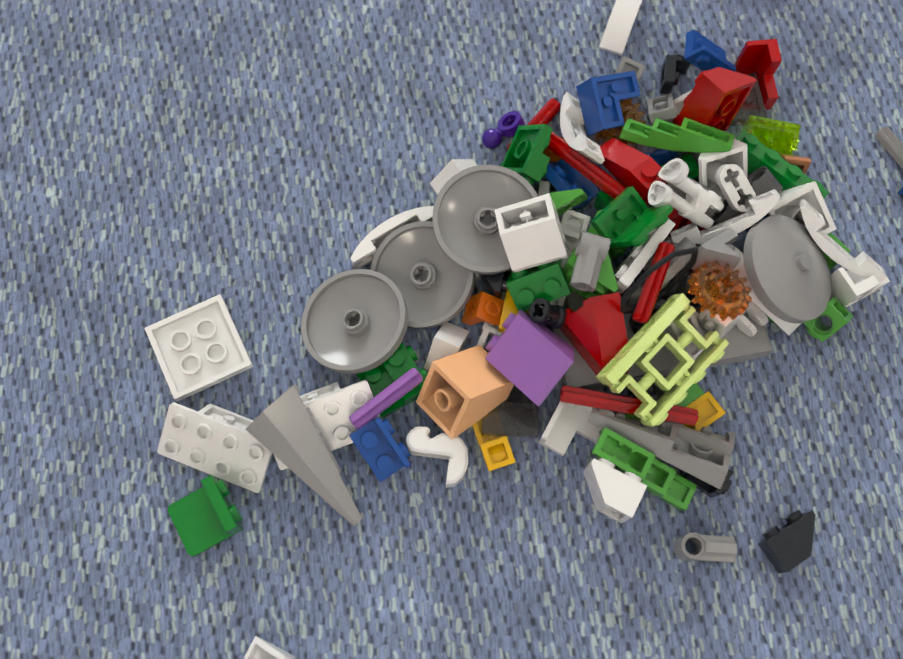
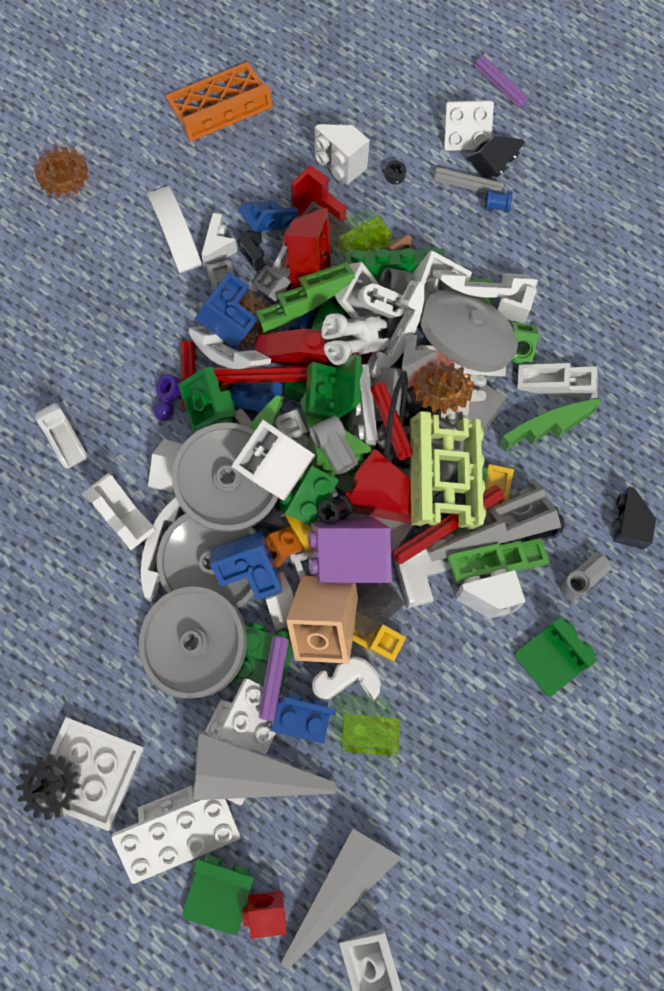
camera: 45 degrees left, 0 degrees up
(165, 341) = (45, 774): none -> black gear
(222, 562) = (265, 914): none -> red brick
(308, 596) = (352, 875): none -> light grey wedge
(389, 181) = (119, 511): none -> white panel
(400, 93) = (61, 435): none -> white animal
(419, 508) = (370, 735): none -> clear neon green hinge
(449, 295) = (249, 559): none -> blue panel
(620, 586) = (555, 656): none -> green bracket
(647, 47) = (217, 245): none -> white slope
(799, 406) = (555, 421): none -> bright green slope
(815, 51) = (341, 150): none -> white slope
(833, 377) = (559, 380): none -> white slope
(851, 98) = (395, 165): none -> black bush

